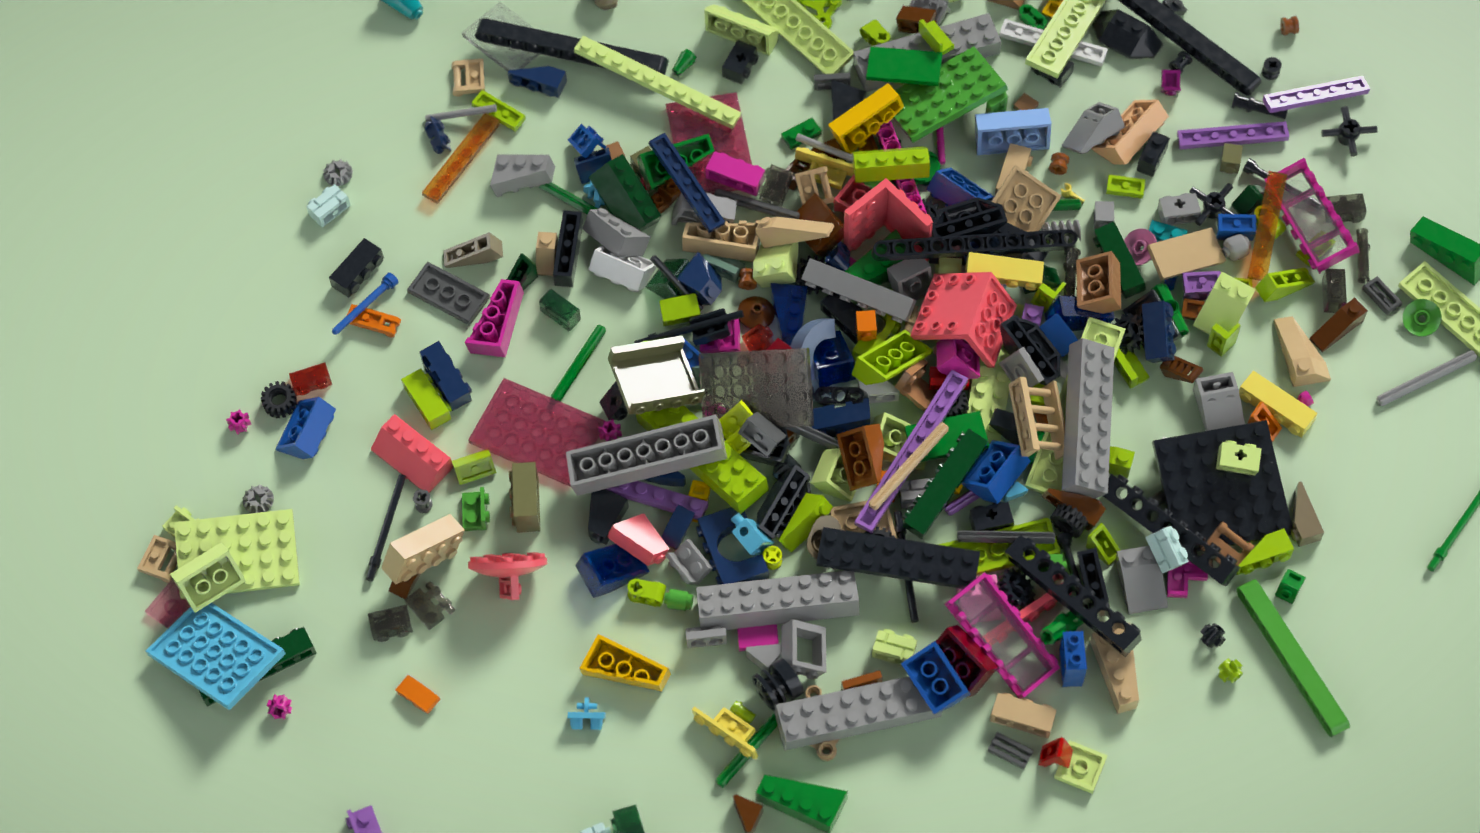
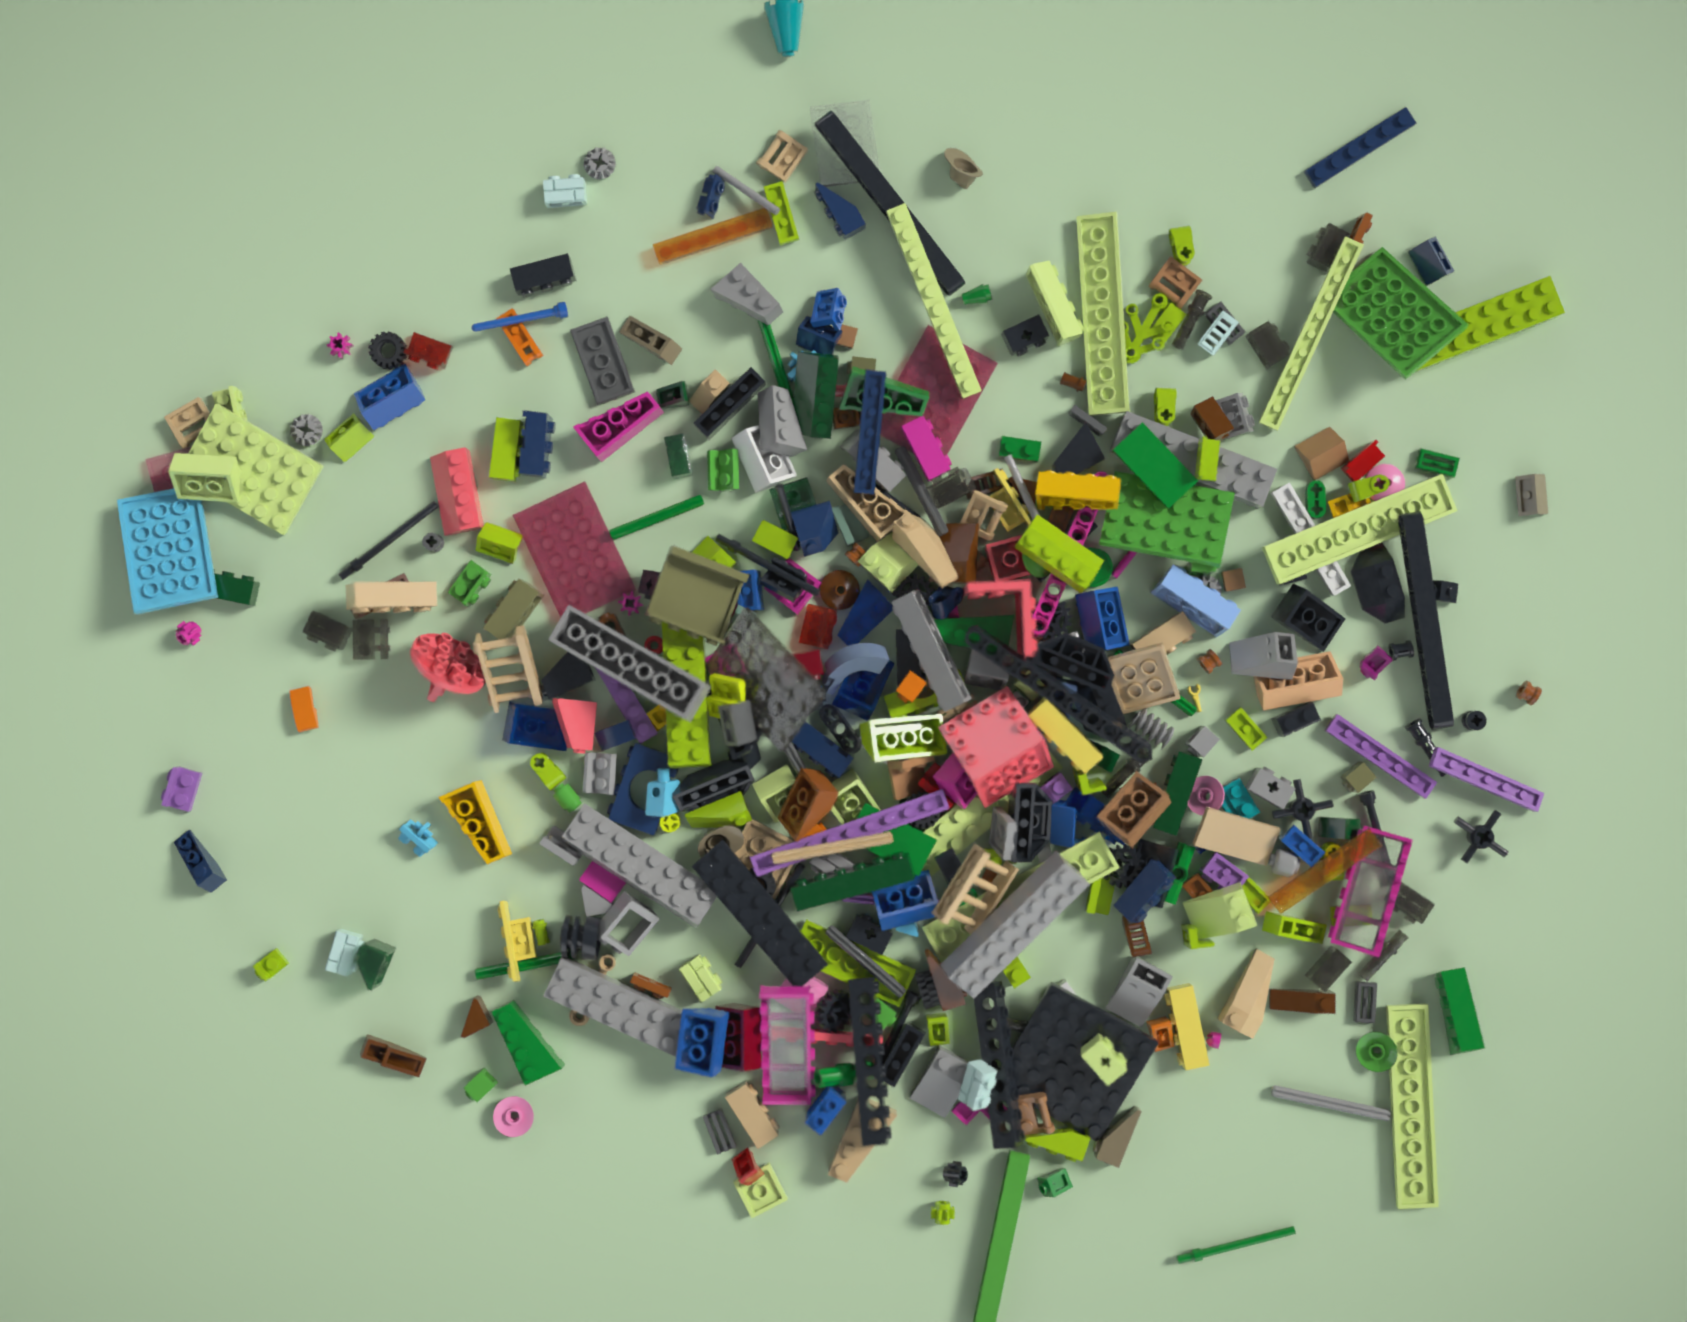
camera: 35 degrees right, 25 degrees up
(296, 479) = (348, 438): none -> lime panel
(562, 516) = (524, 657): none -> tan fence
(601, 294) = (723, 470): none -> bright green bracket
(800, 66) = (1073, 382): none -> reddish brown pin
(1096, 85) = (1308, 617): none -> black slope

